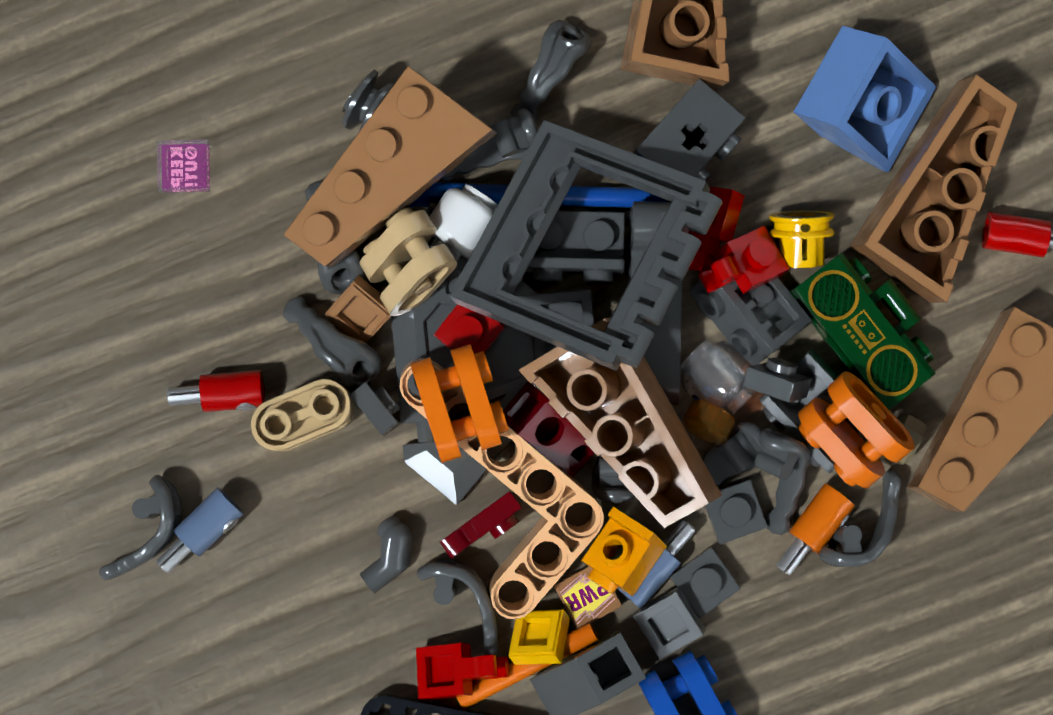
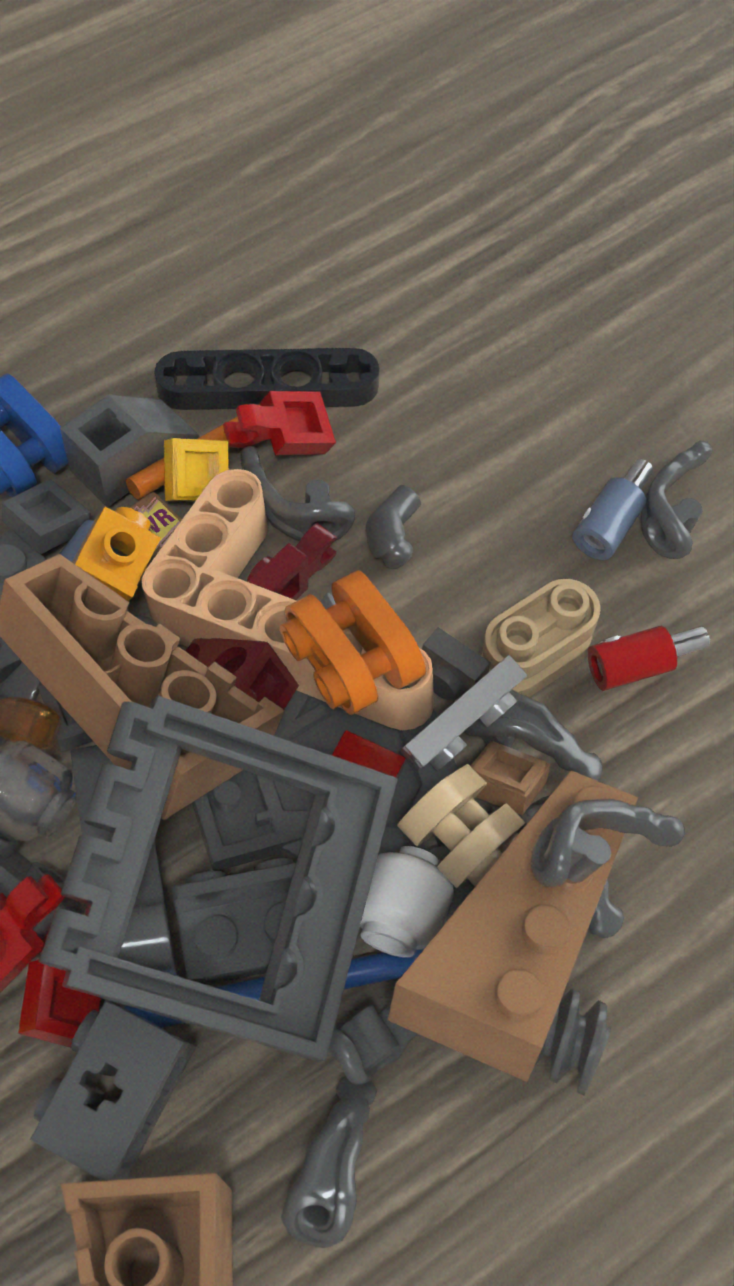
camera: 165 degrees right, 25 degrees down
(358, 192) = (571, 853): none -> dark grey piece
(386, 346) = (483, 701): none -> light grey plate

